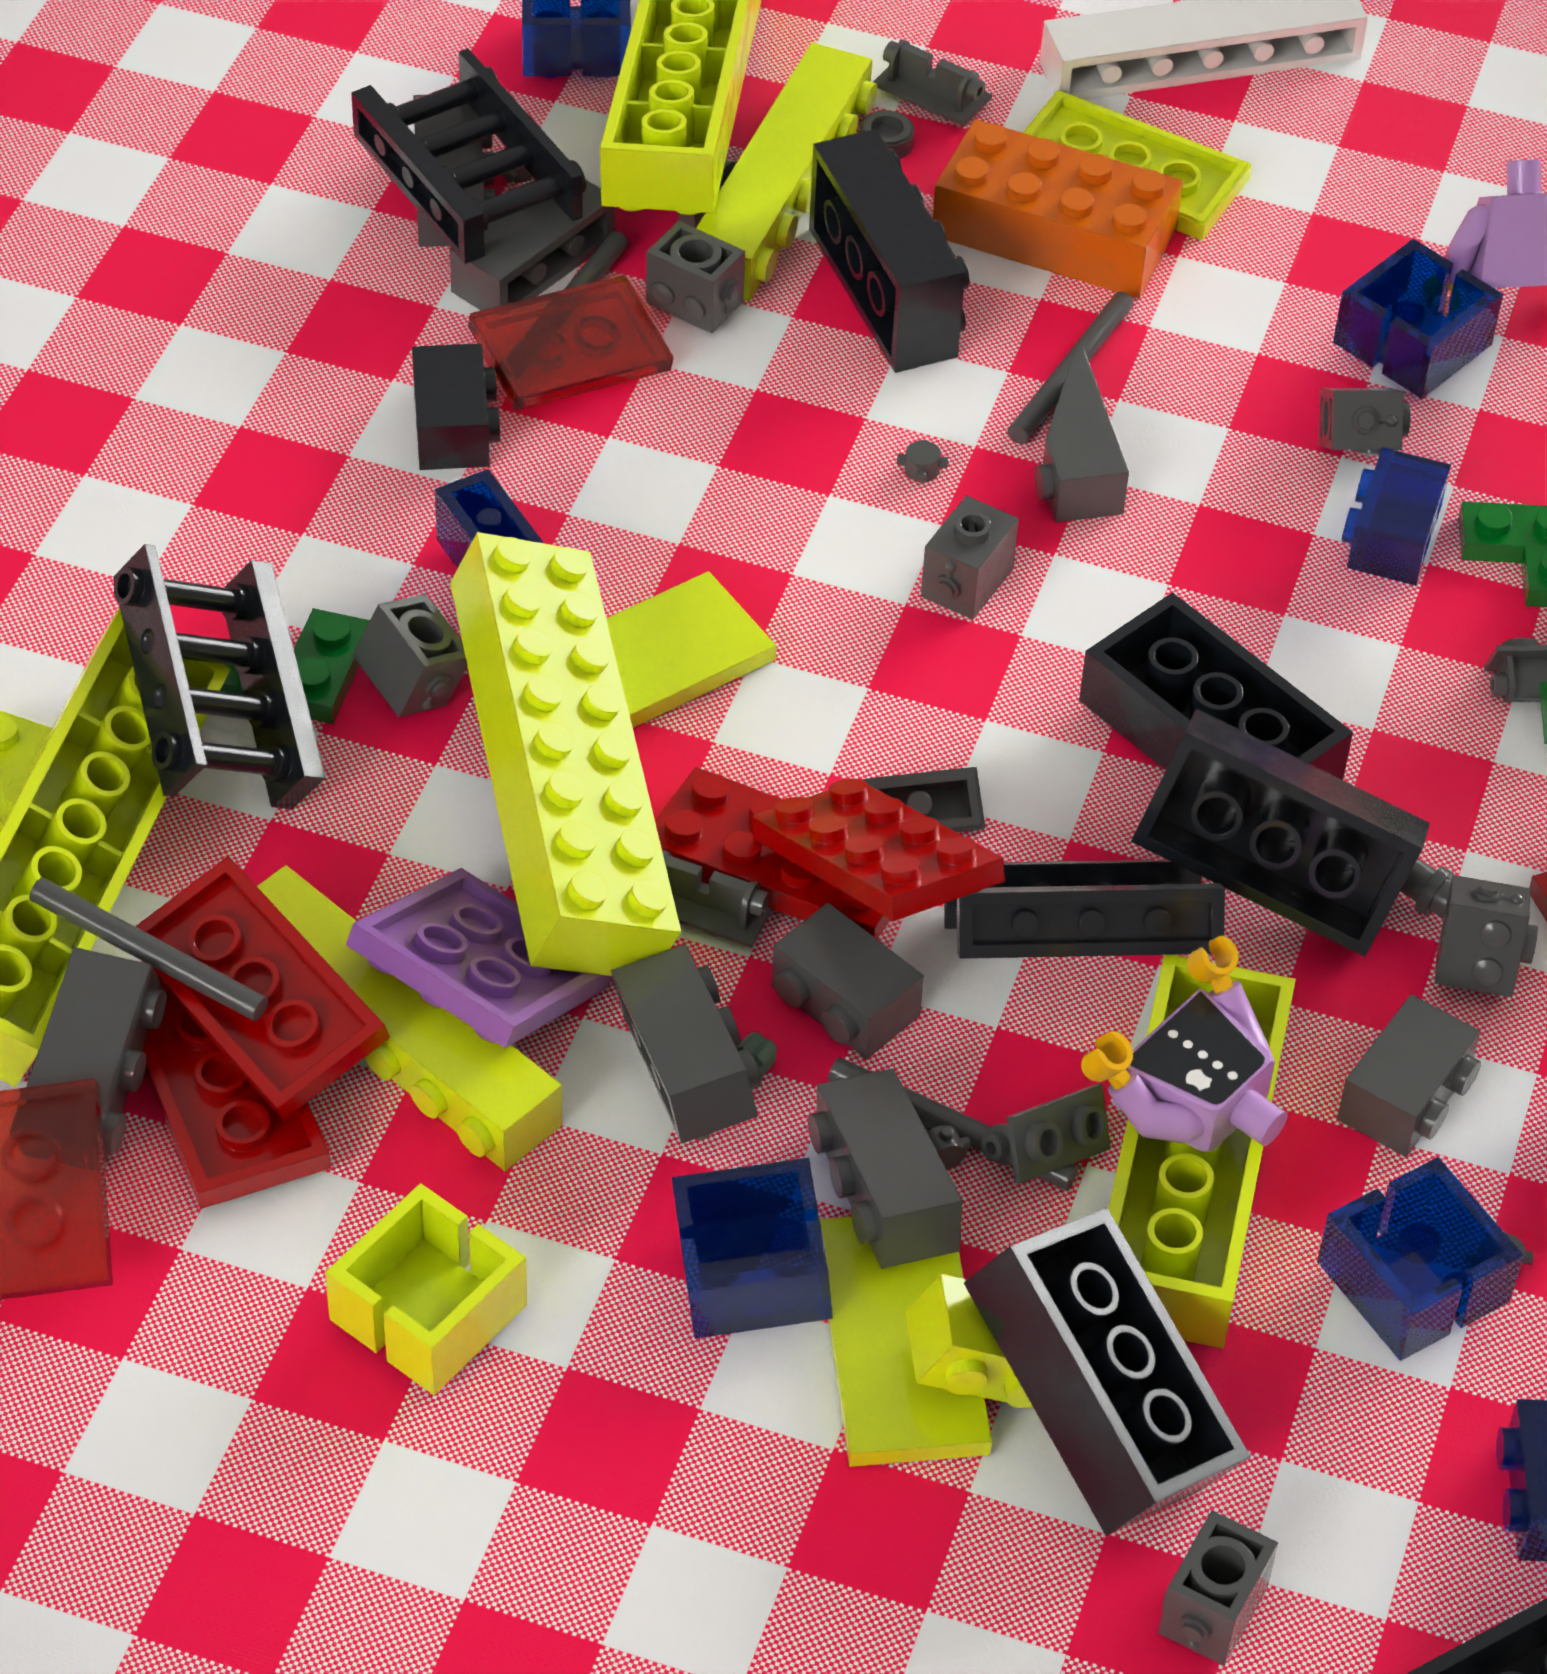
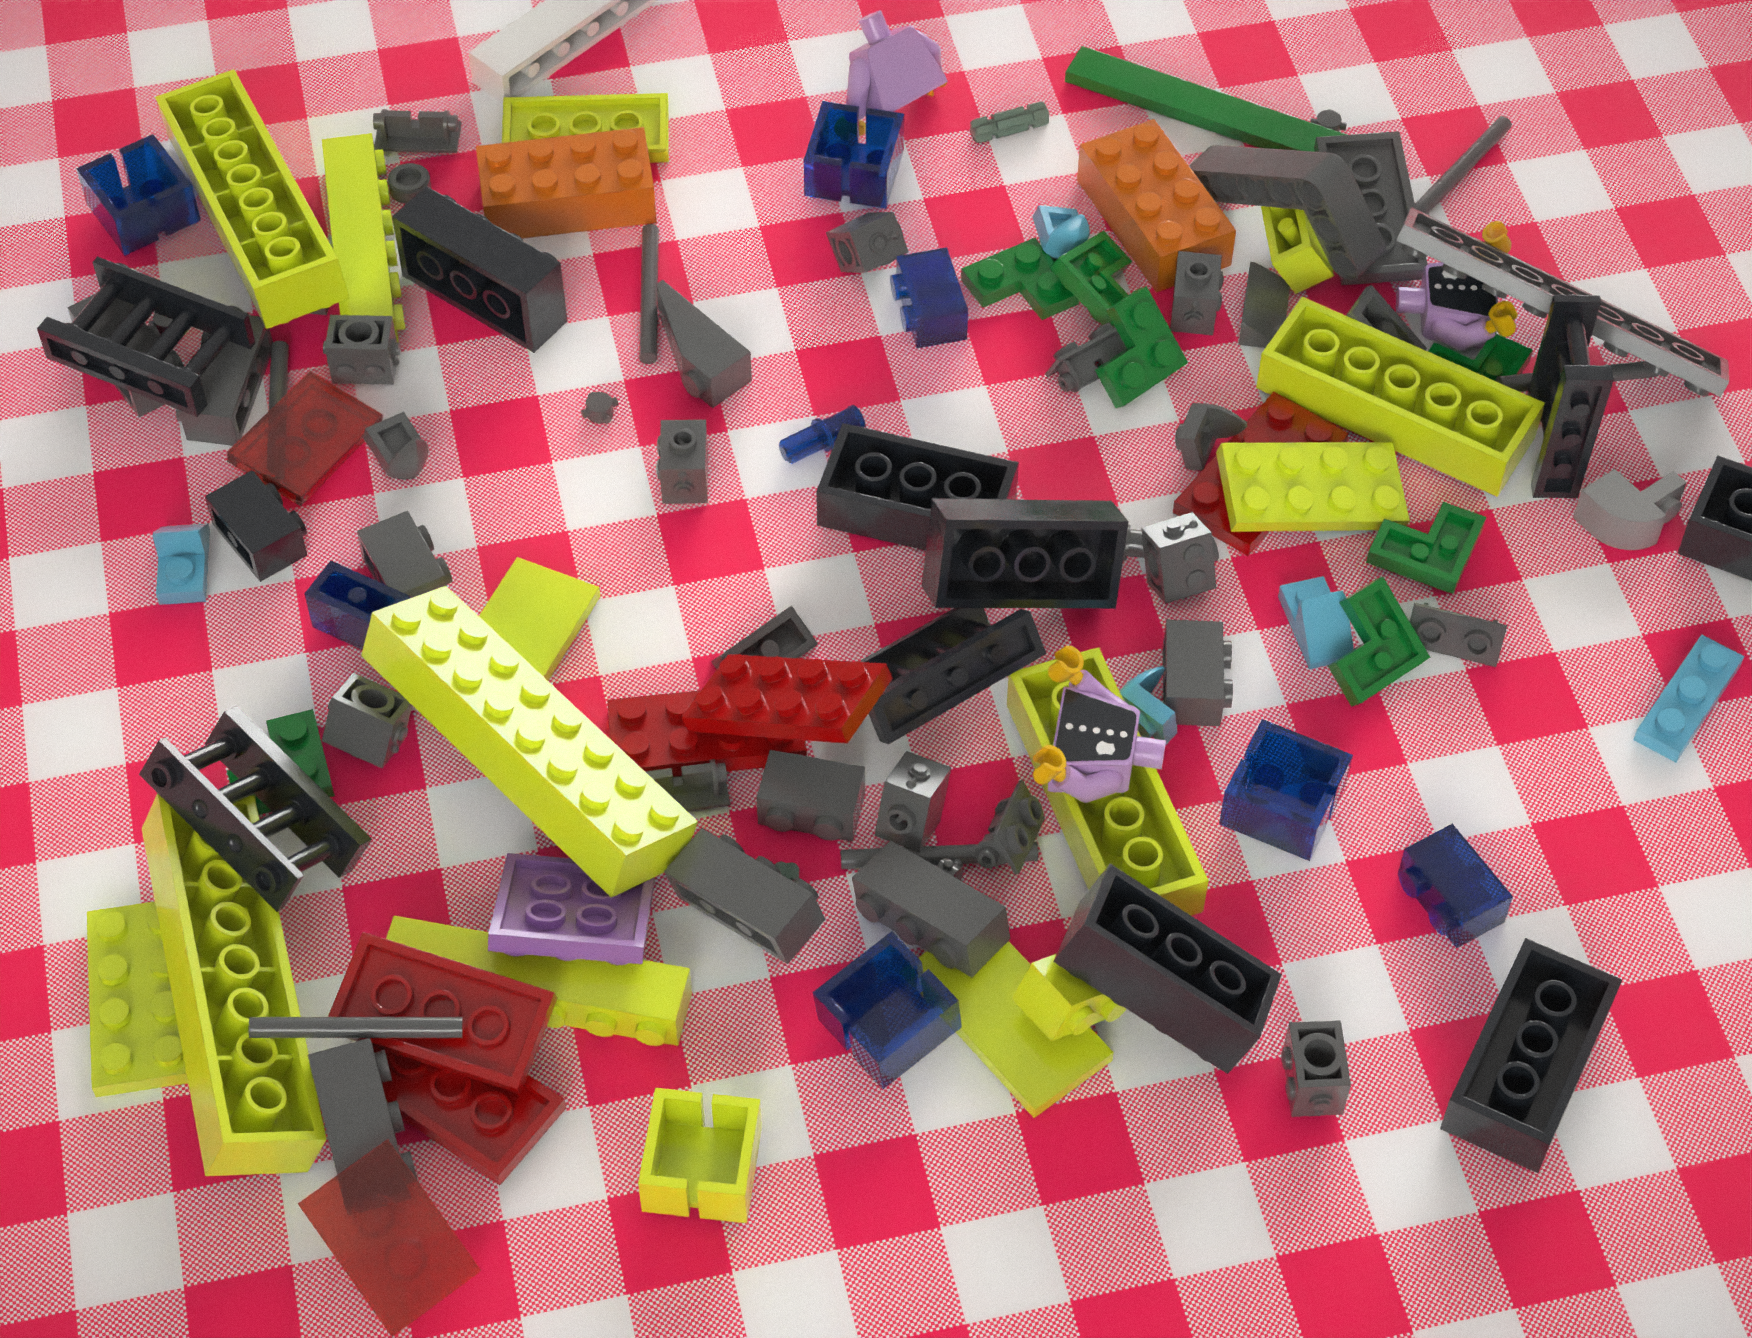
camera: 30 degrees left, 5 degrees up
(349, 410) = (182, 563): none -> medium azure slope
(580, 509) = (402, 556): none -> dark grey brick
(663, 397) = (397, 446): none -> dark grey plate
(953, 1041) = (912, 801): none -> dark grey head
(1124, 604) = (819, 435): none -> clear blue axle
(1314, 1090) = (1155, 717): none -> medium azure plate

